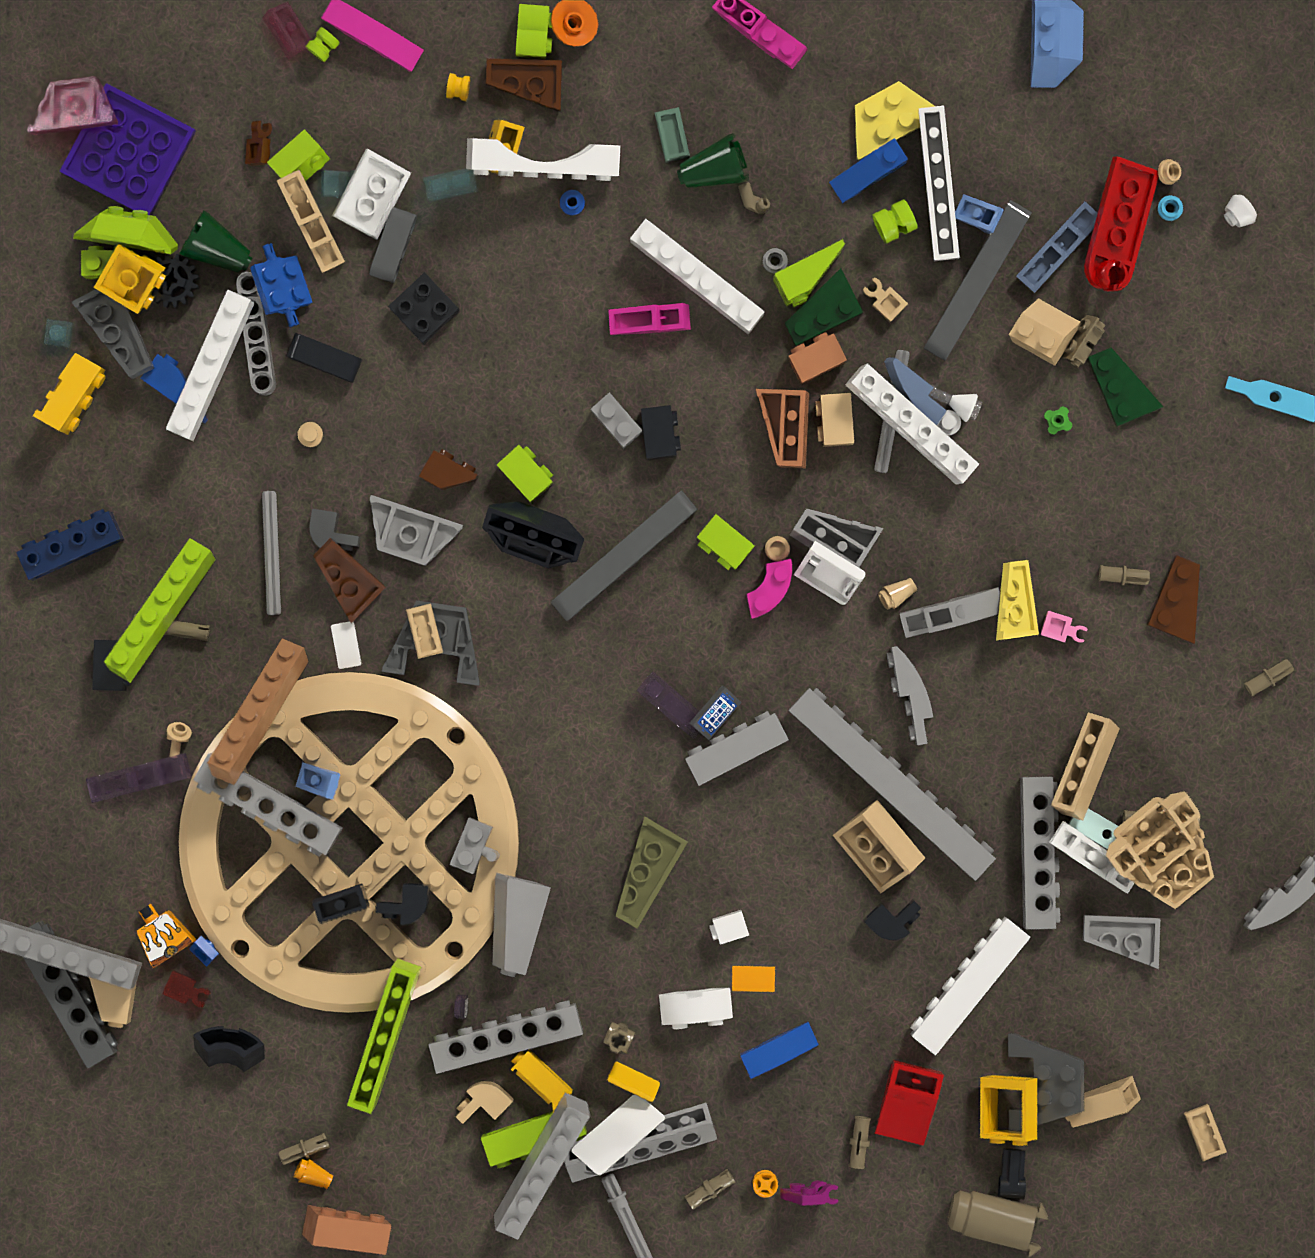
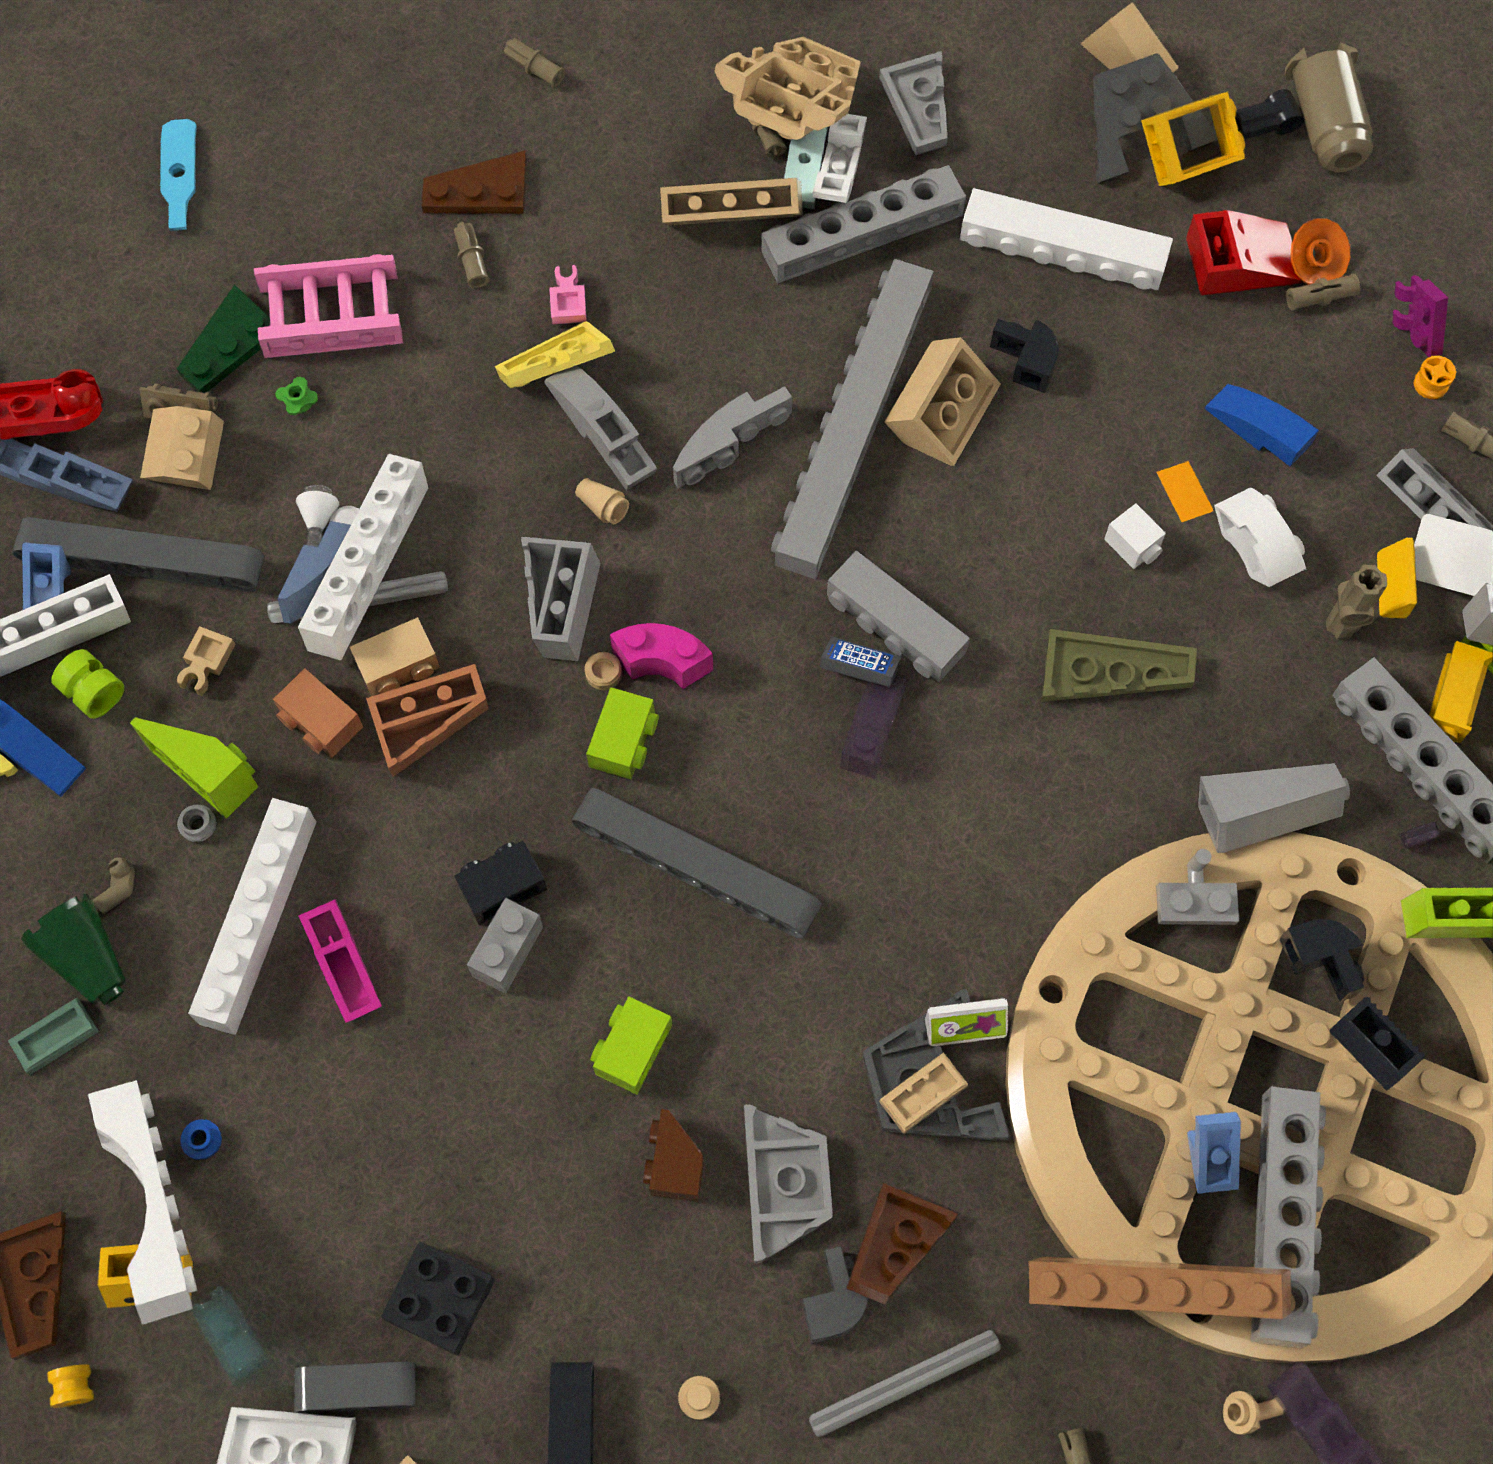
camera: 115 degrees left, 20 degrees down
(346, 645) = (992, 1211): white sticker -> none
(455, 675) = (967, 1022): none -> slope
(533, 534) = (716, 994): black wedge -> none
(824, 310) = (239, 720): dark green wing -> none
(832, 573) = (610, 579): white container -> none
(880, 1157) = (1330, 247): none -> orange dish
(1100, 446) = (330, 335): none -> bright pink fence

